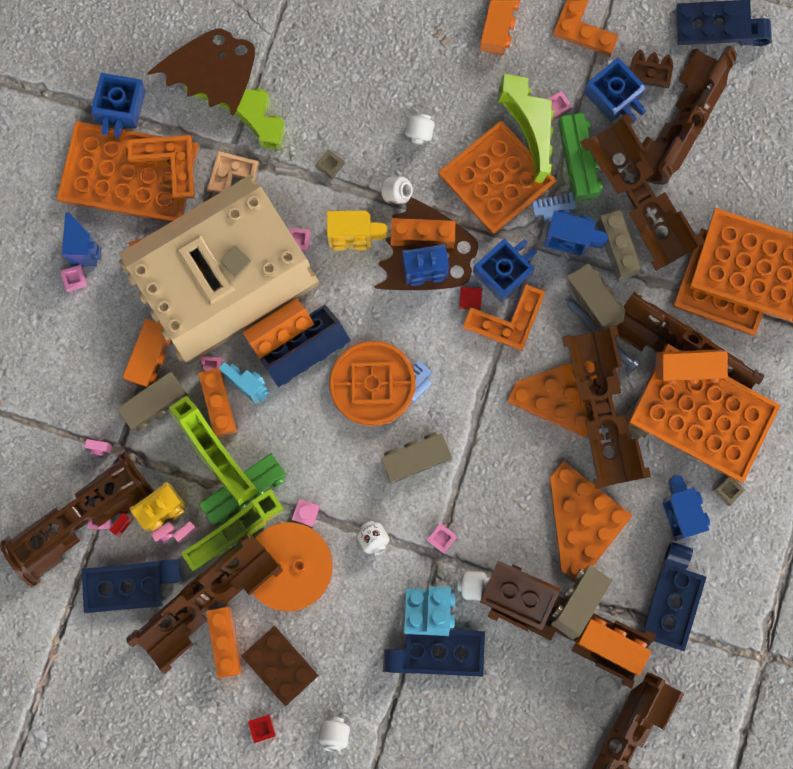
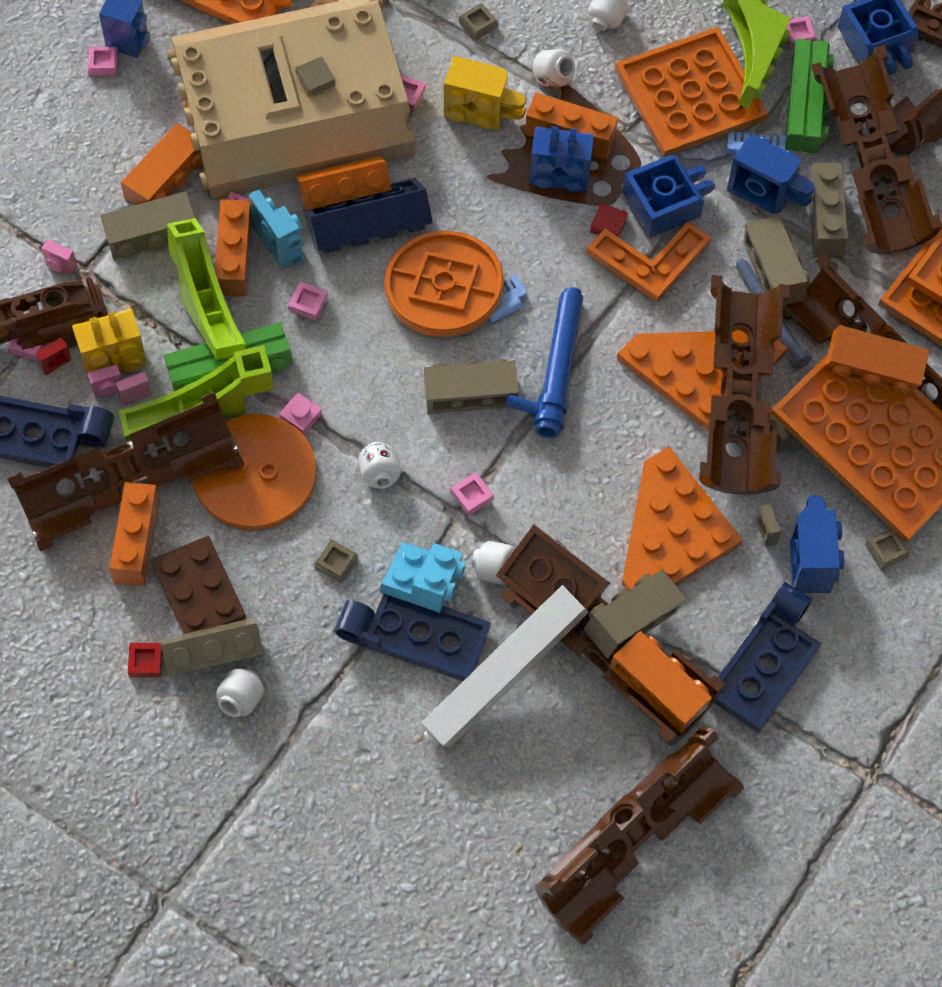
camera: 15 degrees right, 15 degrees down
(283, 426) = (308, 301): none -> bright pink plate
(305, 710) = (211, 646): none -> dark tan brick
(365, 615) = (336, 561): none -> dark tan tile
(474, 454) = (552, 403): none -> blue cylinder
(507, 668) = (503, 668): none -> white brick
(646, 500) = (768, 525): none -> dark tan tile

